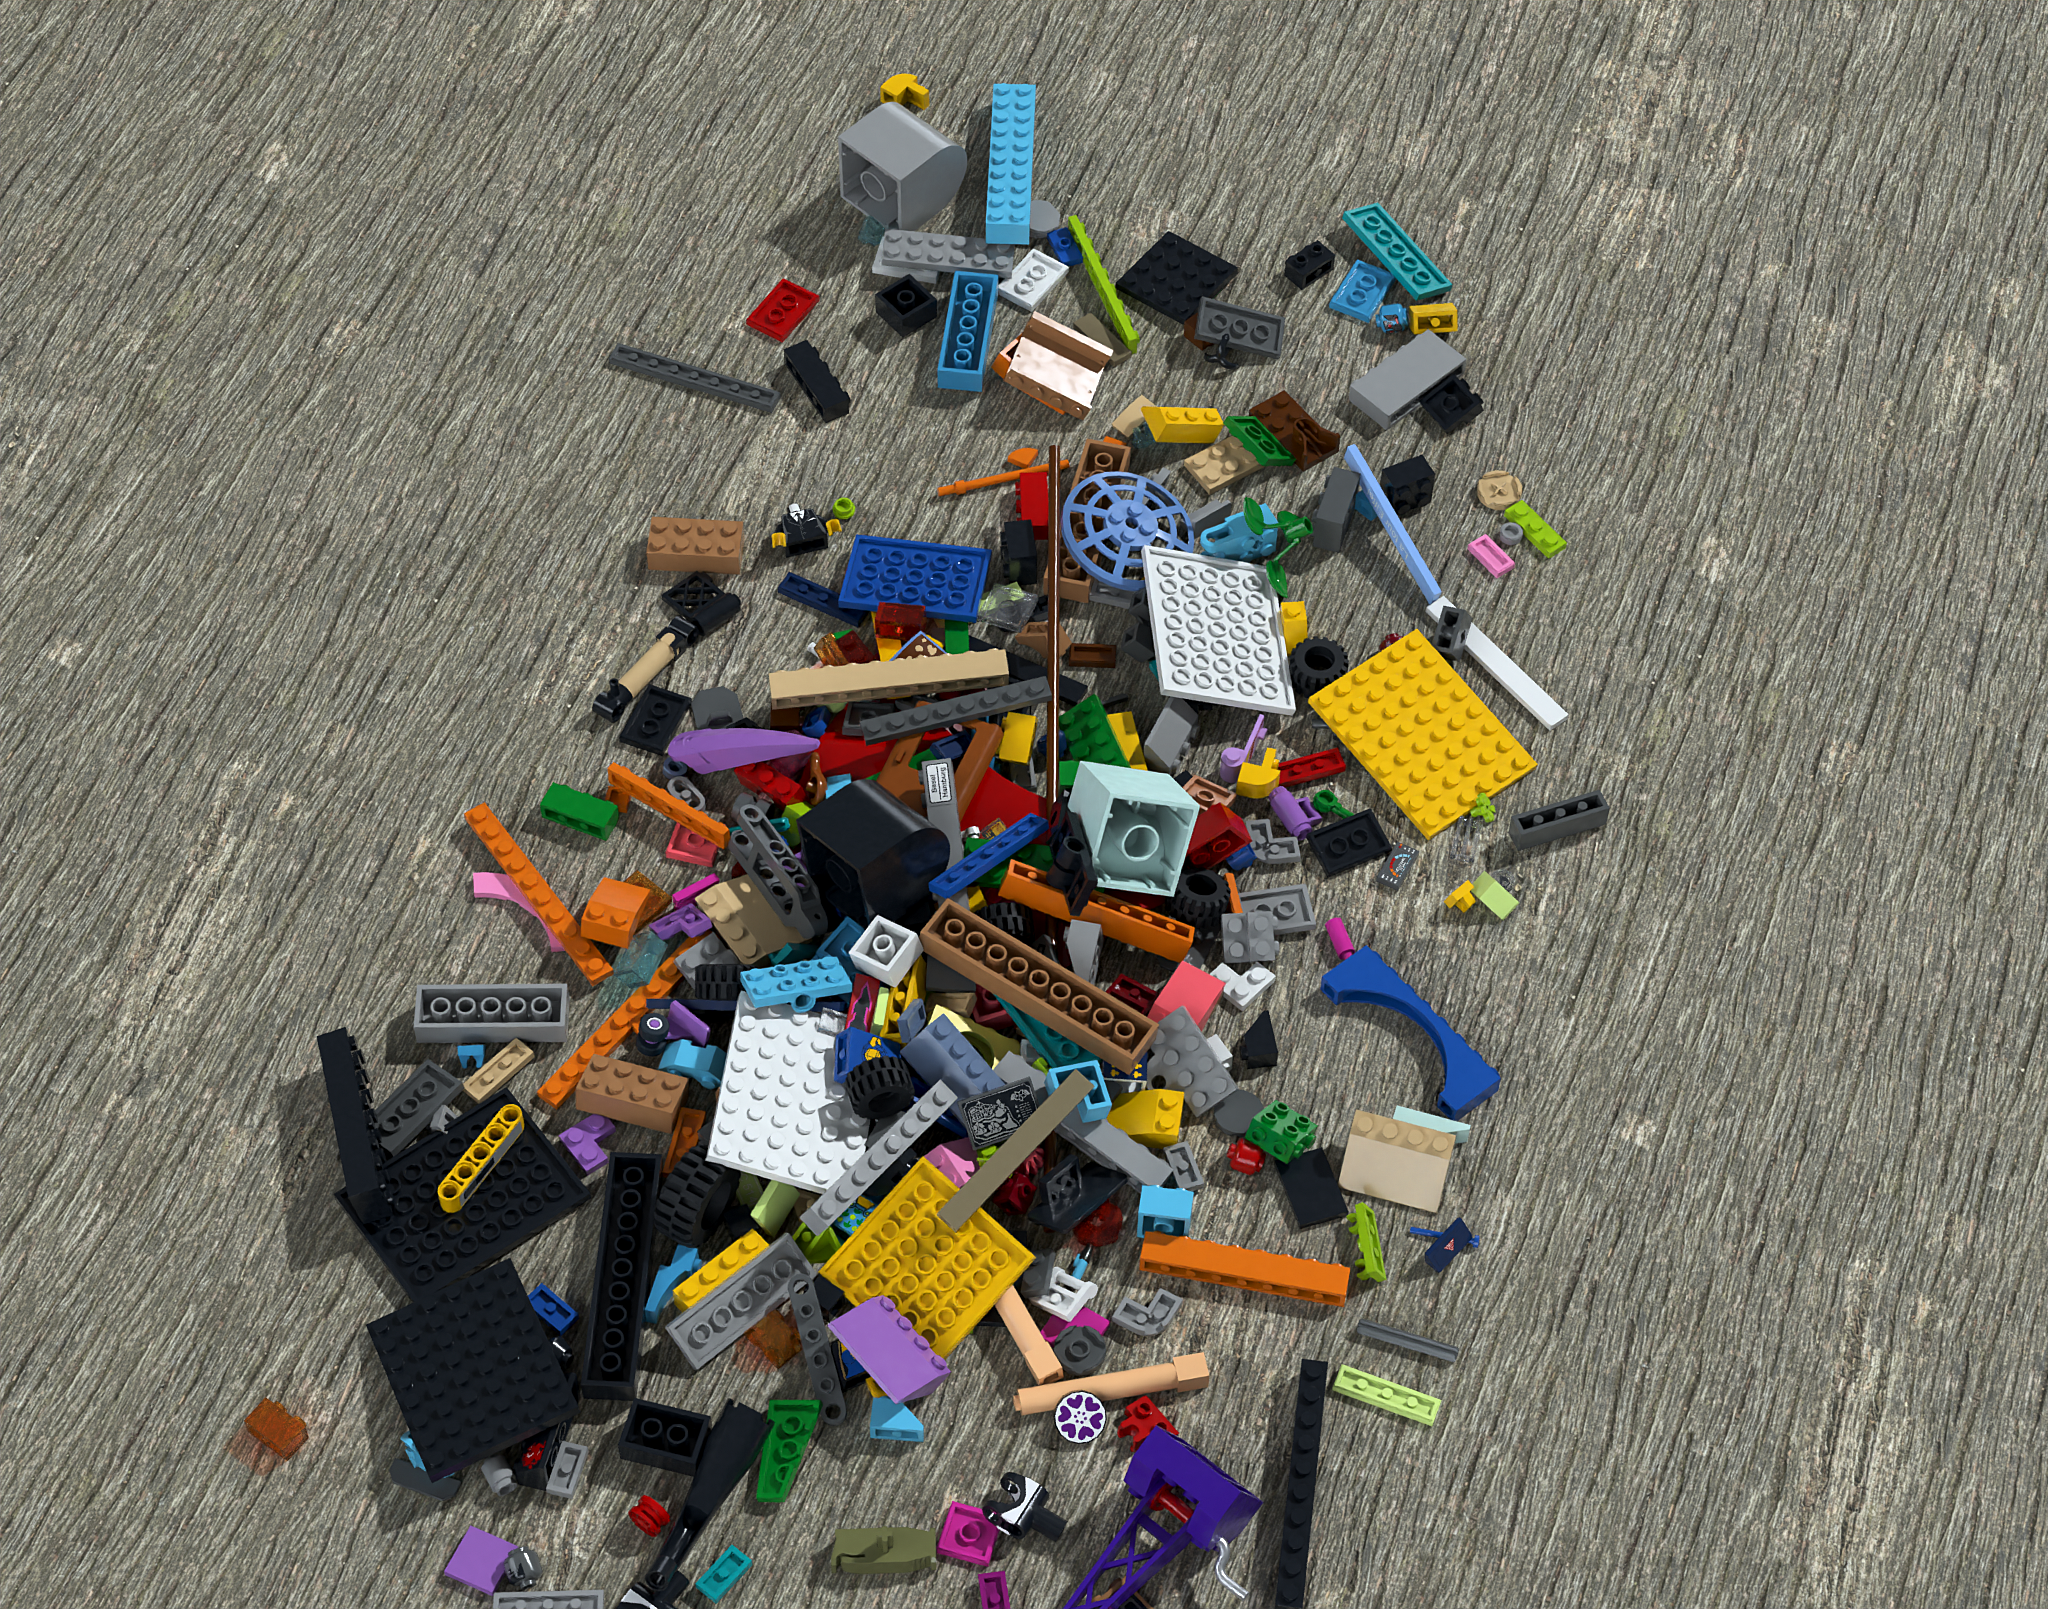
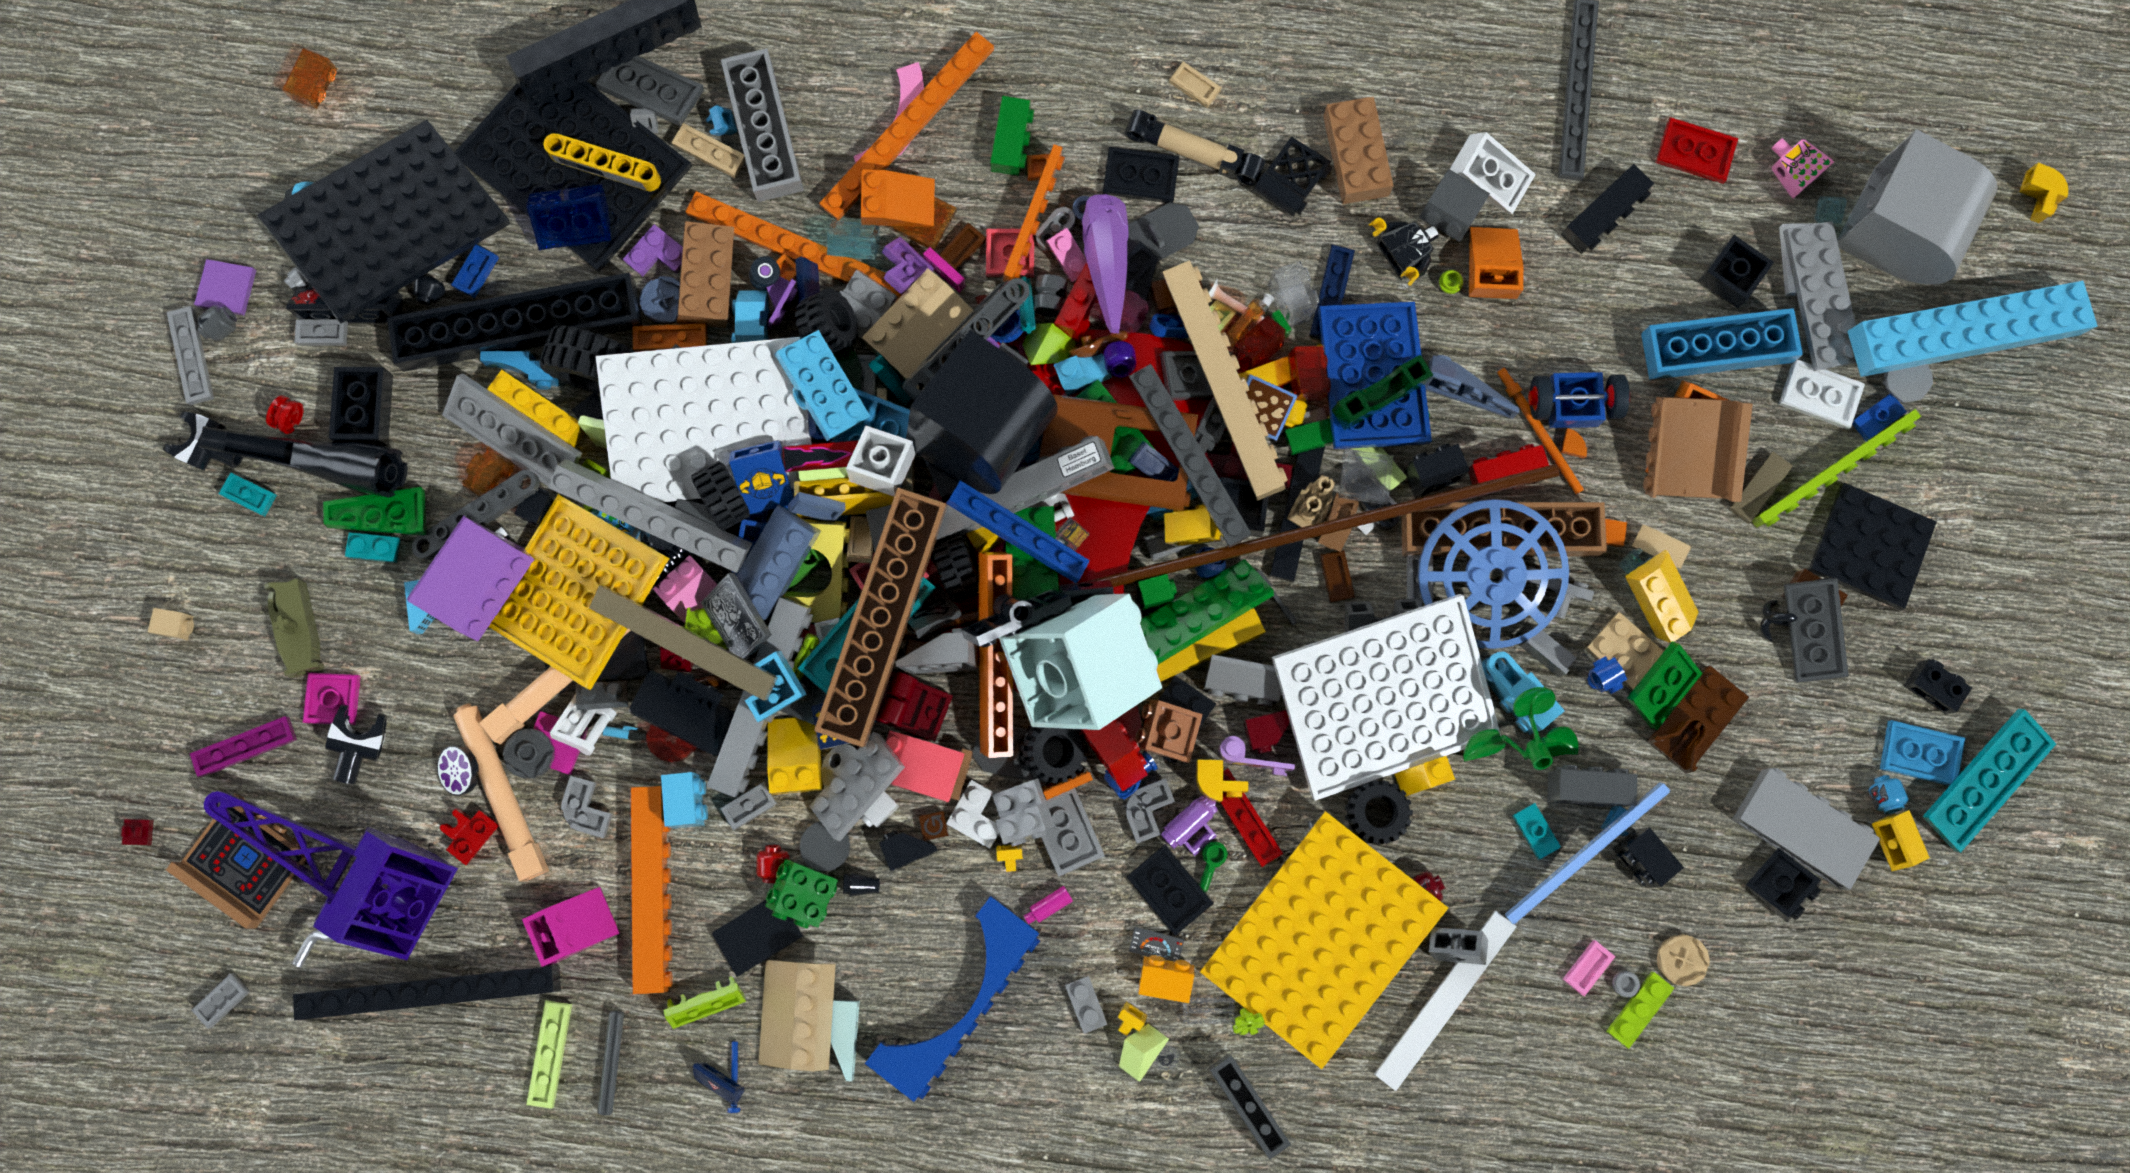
camera: 75 degrees right, 25 degrees up
(529, 1198) = (569, 217): none -> clear blue slope
(581, 658) = (1195, 85): none -> tan tile
(641, 1140) = (660, 300): none -> sand blue tile
(673, 874) = (962, 246): none -> reddish brown tile
(716, 789) = (1067, 253): none -> bright pink plate
(750, 455) = (1494, 170): none -> white slope
(776, 483) = (1454, 205): none -> dark grey slope
(818, 617) = (1293, 293): none -> clear brick
(818, 1464) = (372, 547): none -> teal plate
(824, 243) = (1798, 165): none -> bright pink torso
(839, 470) = (1495, 263): none -> orange slope
(839, 760) = (1119, 359): none -> dark purple head
(932, 553) = (1383, 393): none -> dark green arch
(946, 519) = (1459, 384): none -> sand blue wedge
(987, 435) = (1578, 399): none -> brick
(1019, 650) = (1312, 503): none -> tan connector
(1220, 733) = (1265, 731): none -> dark red slope
(1241, 474) = (1606, 675): none -> blue connector
(1241, 1018) = (933, 826): none -> reddish brown tile
(1266, 1347) = (570, 926): none -> dark pink slope
(1284, 1088) = (858, 884): none -> black cone
(1287, 959) = (1009, 855): none -> yellow tile
(1362, 564) = (1536, 831): none -> teal plate
(1431, 859) = (1166, 979): none -> light orange brick
(1439, 932) = (1086, 1004): none -> light grey plate

